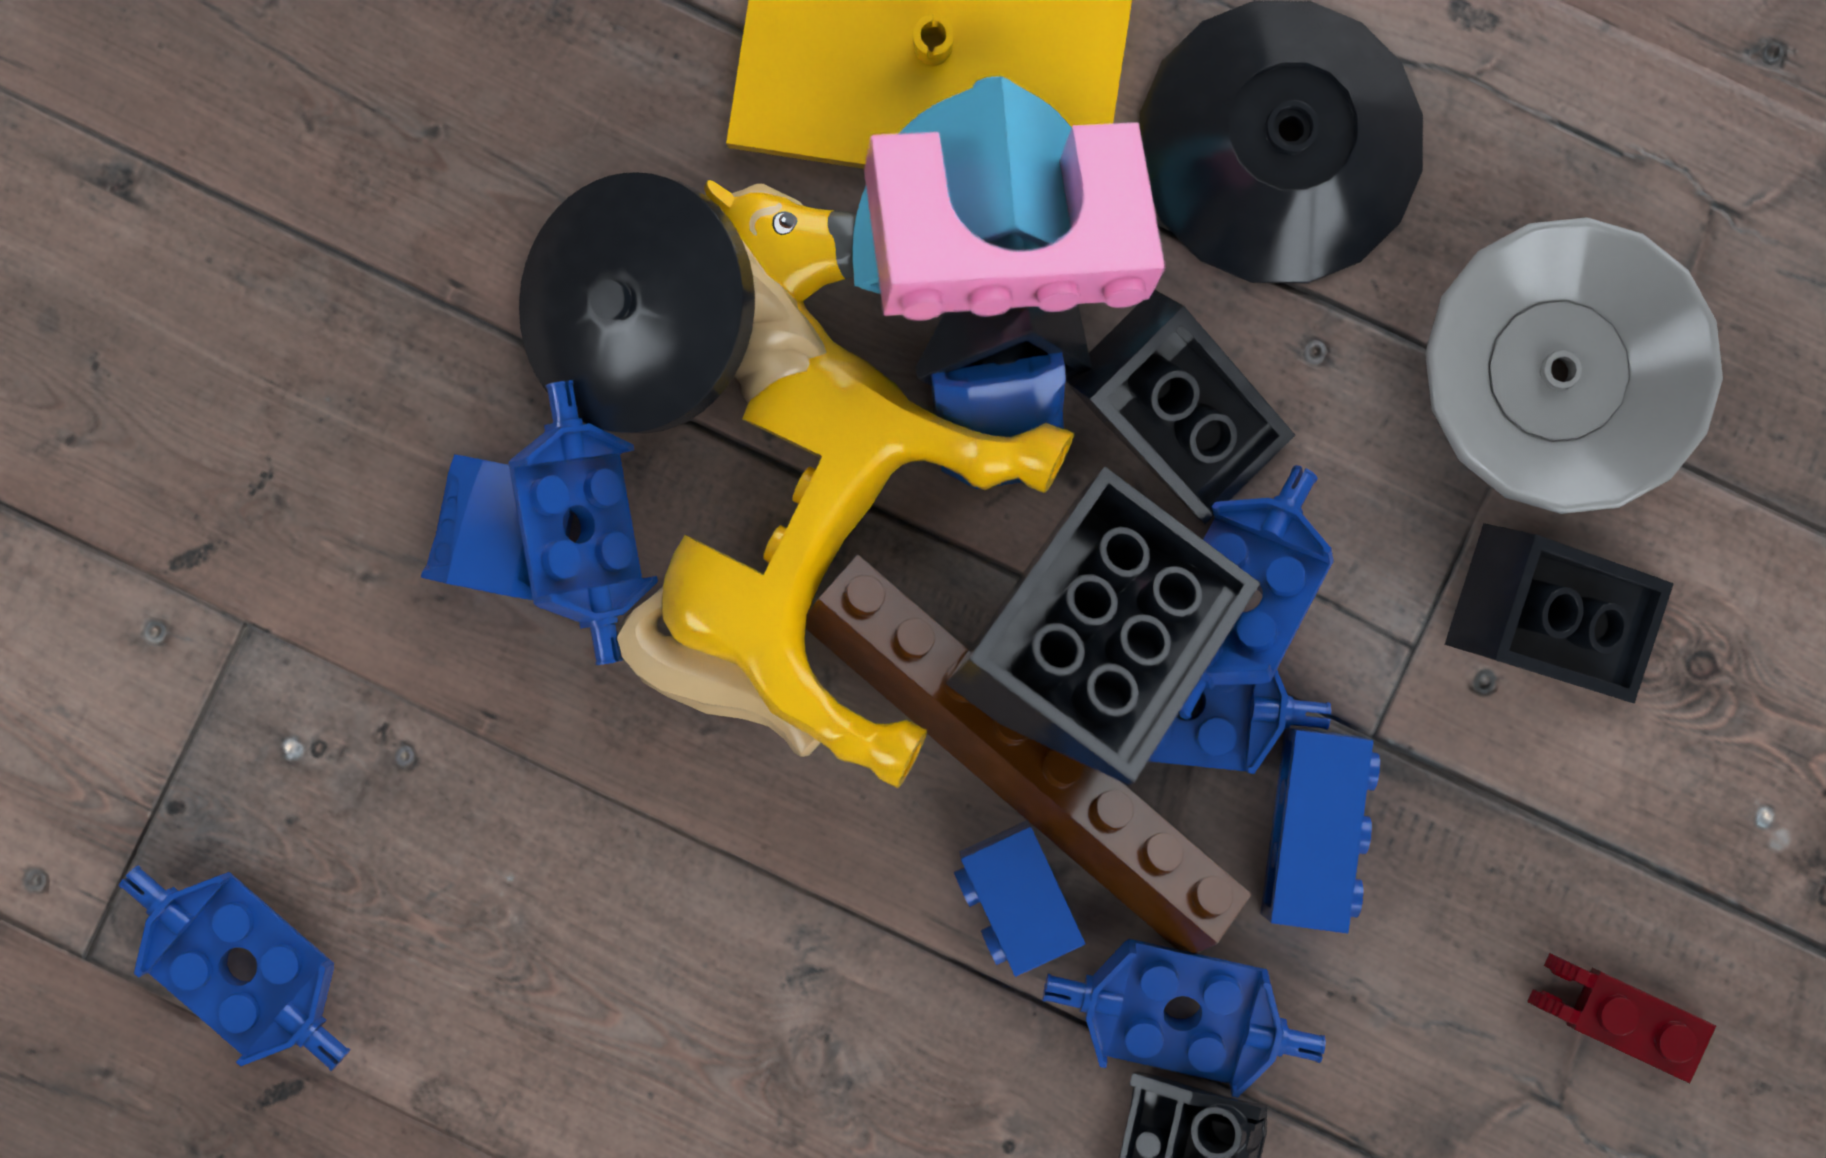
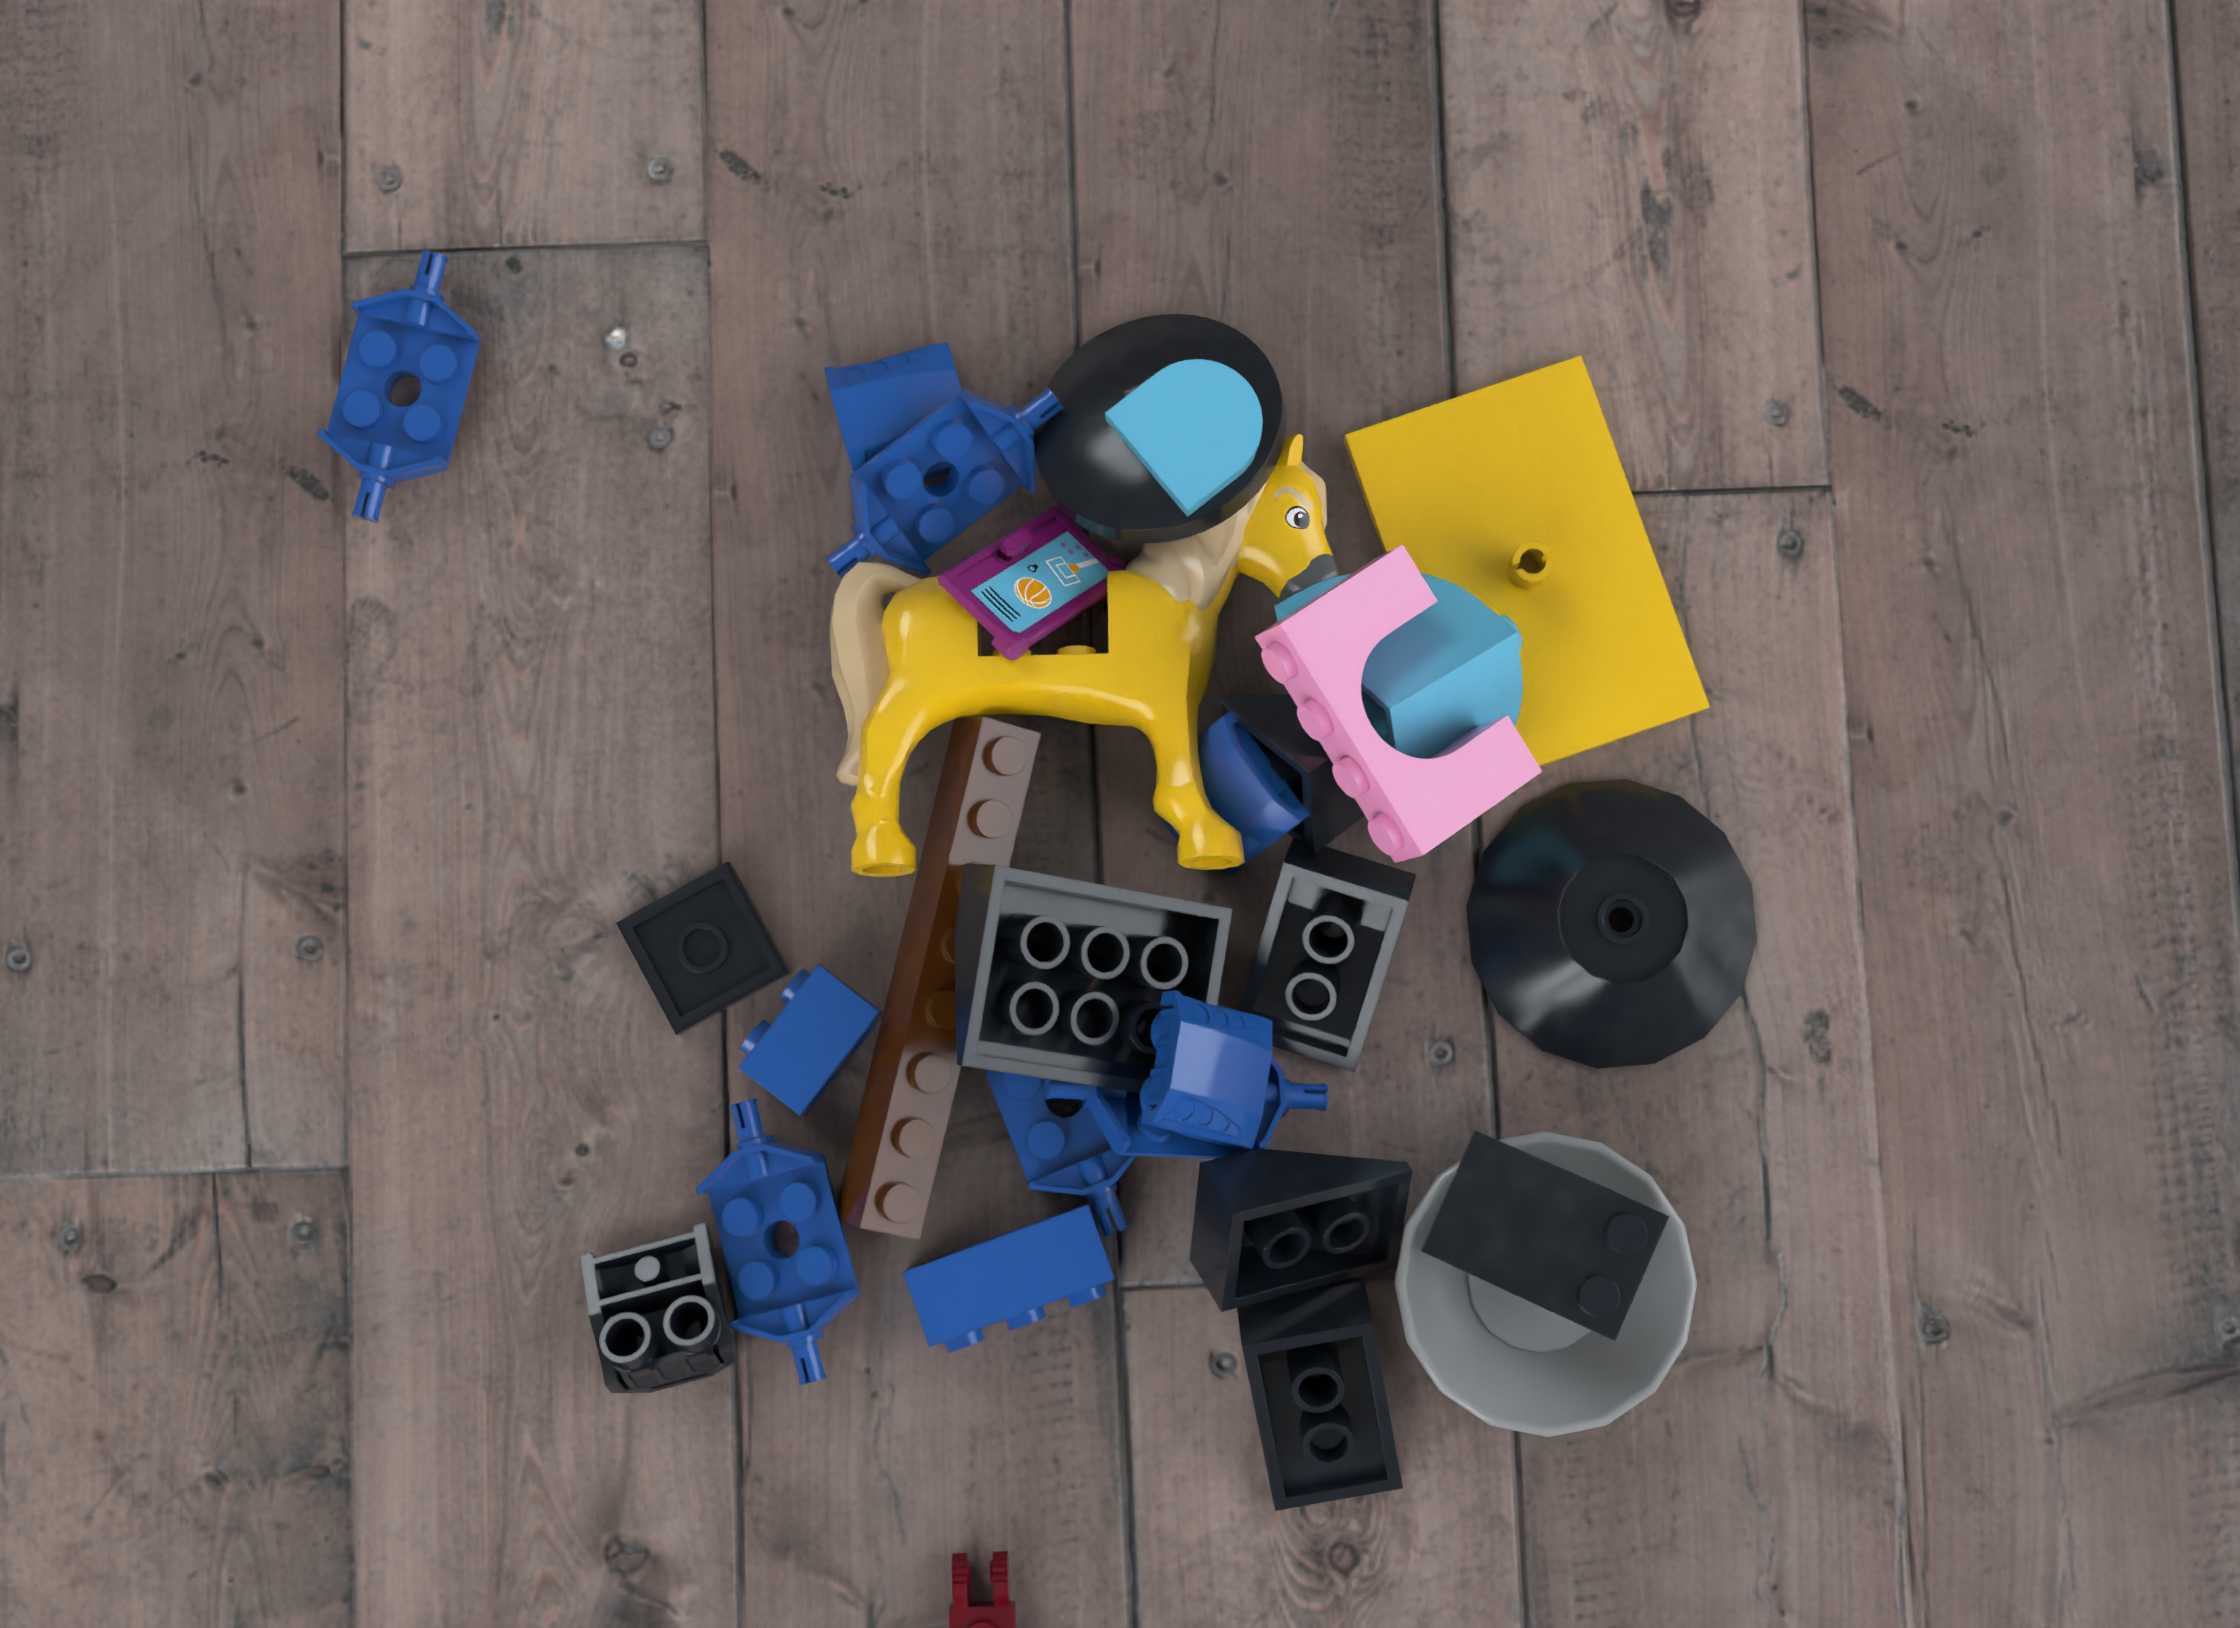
camera: 60 degrees right, 5 degrees down
(657, 273) = (1191, 428): none -> medium azure tile
(727, 491) = (1043, 583): none -> door
(887, 951) = (703, 948): none -> black tile
(1241, 564) = (1207, 1072): none -> blue slope
(1405, 558) = (1294, 1222): none -> black slope
(1541, 341) = (1545, 1234): none -> black slope

